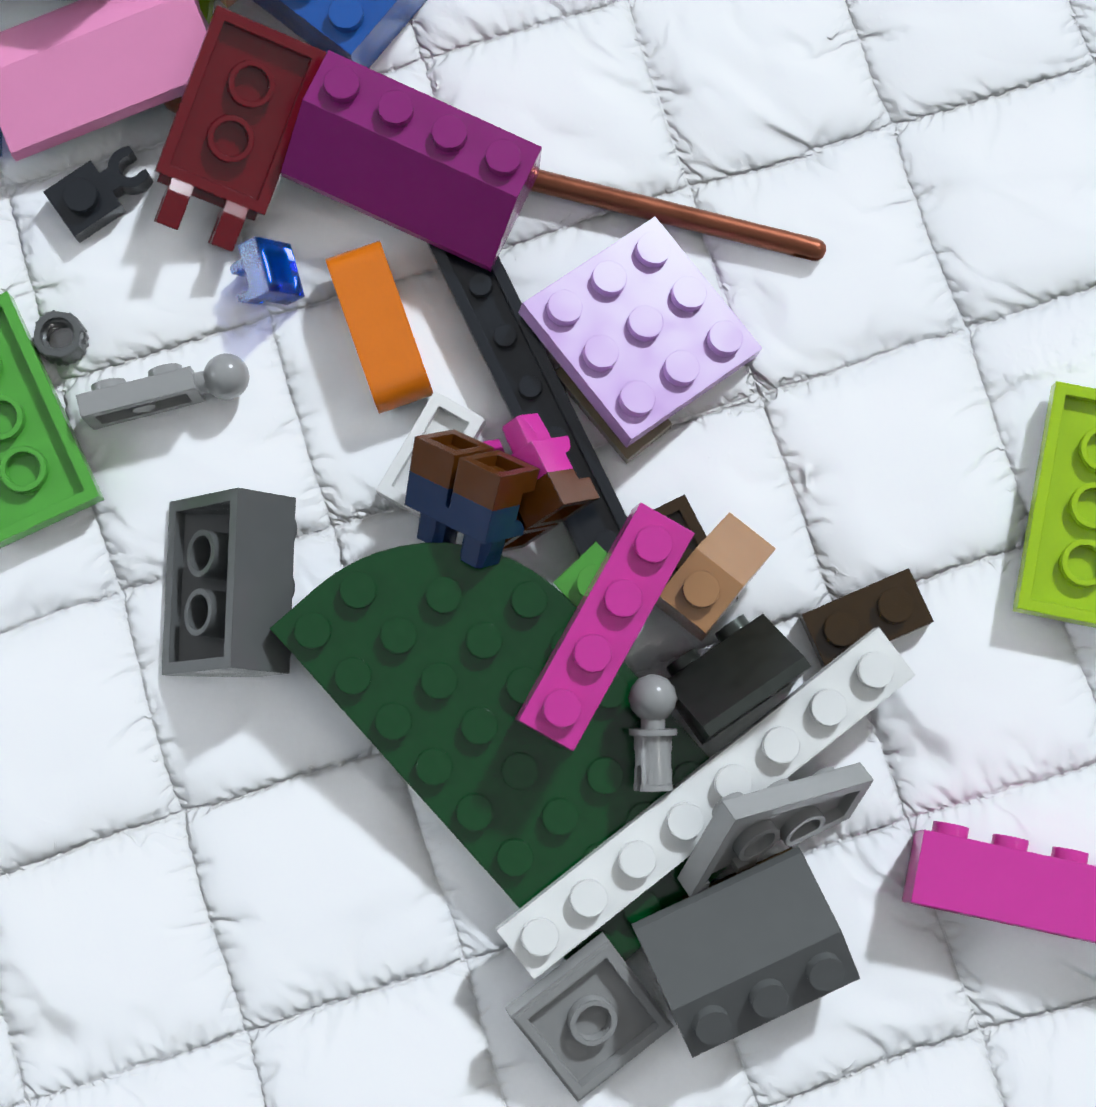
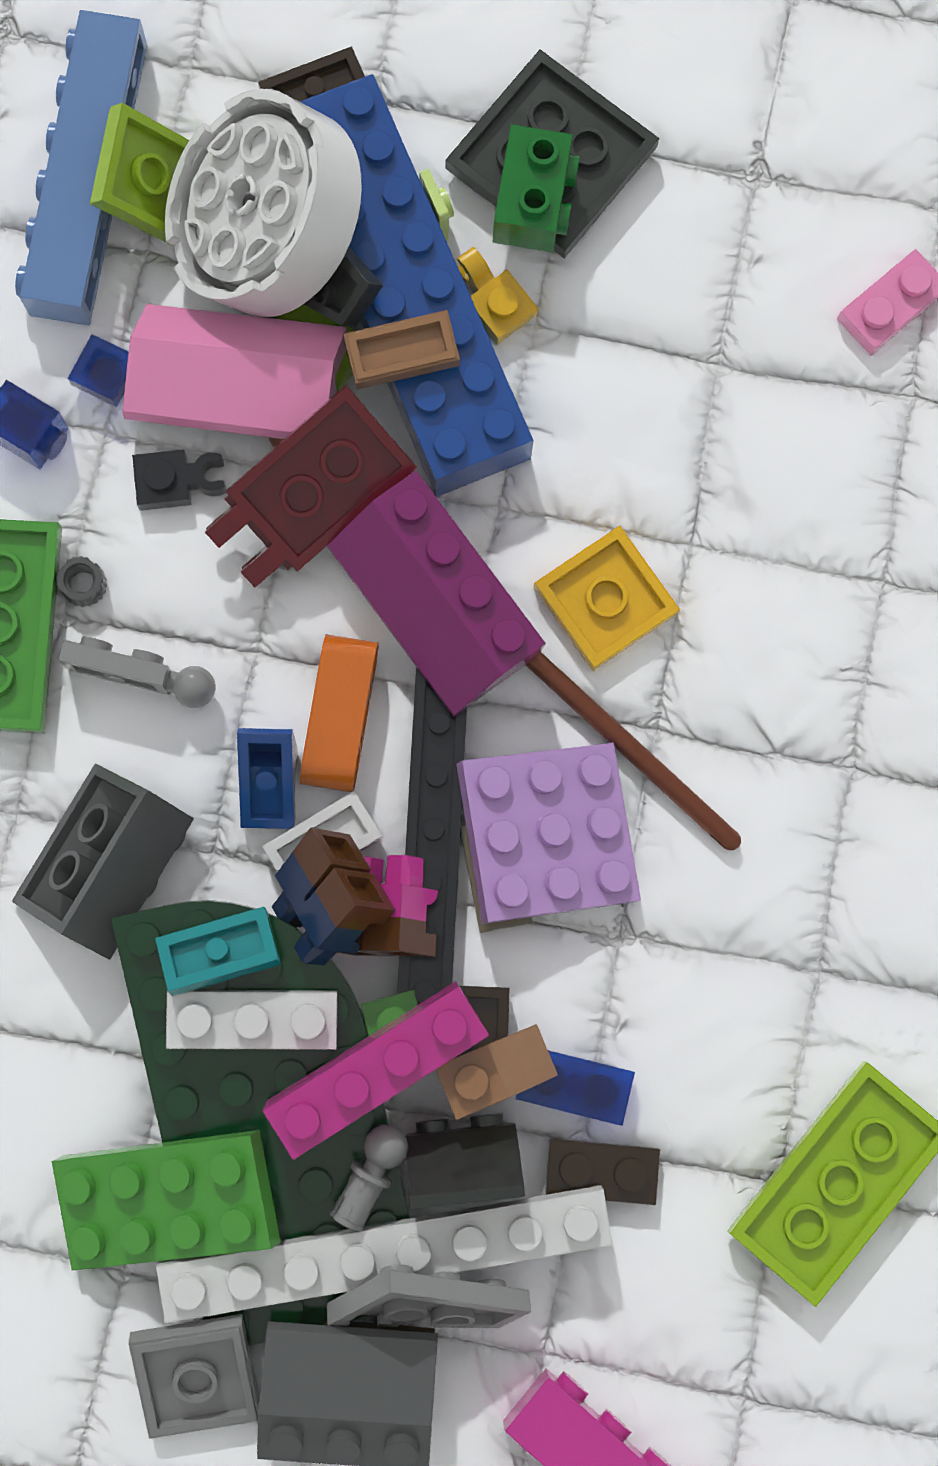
camera: 20 degrees right, 0 degrees up
(268, 271) = (275, 619): clear blue tile -> none
(344, 421) = (267, 777): none -> blue slope
(391, 598) = (218, 951): none -> teal plate
(459, 647) = (252, 1019): none -> white plate
(471, 866) = (166, 1201): none -> bright green plate
(572, 88) = (606, 598): none -> yellow tile
(806, 552) = (584, 1089): none -> clear blue plate

